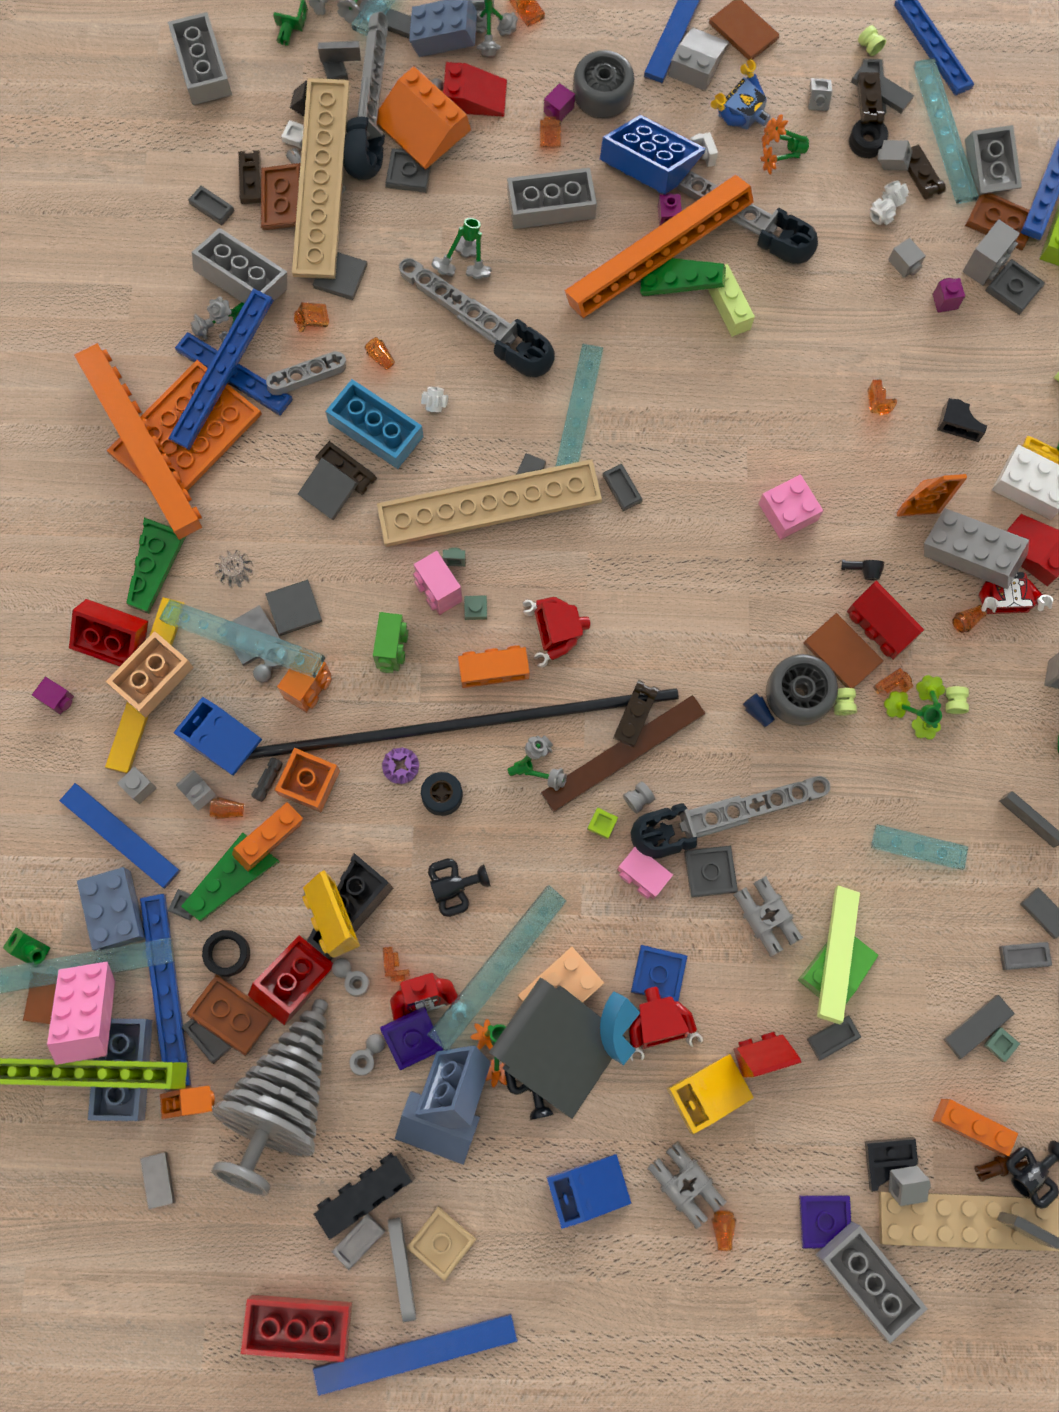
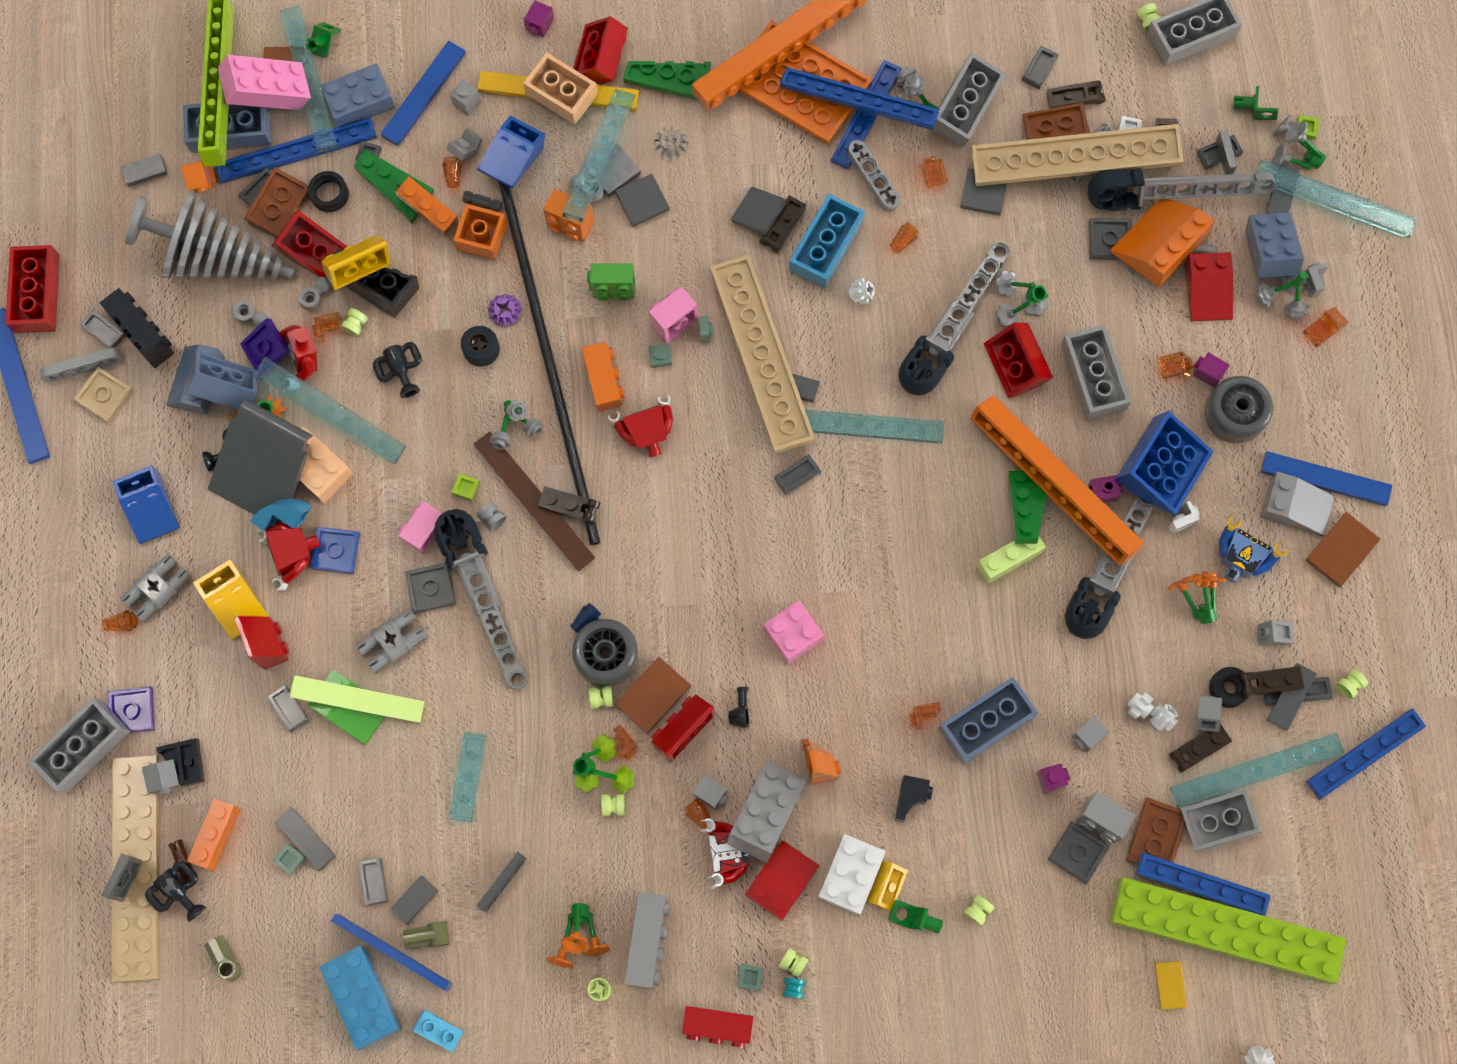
camera: 90 degrees right, 0 degrees up
(177, 97) = (1147, 14): none -> yellowish green wheel
(394, 933) = (353, 323): none -> yellowish green wheel
(527, 267) = (1018, 359): none -> red slope
(892, 341) = (988, 720): none -> sand blue brick
(948, 604) = (710, 792): none -> light grey brick

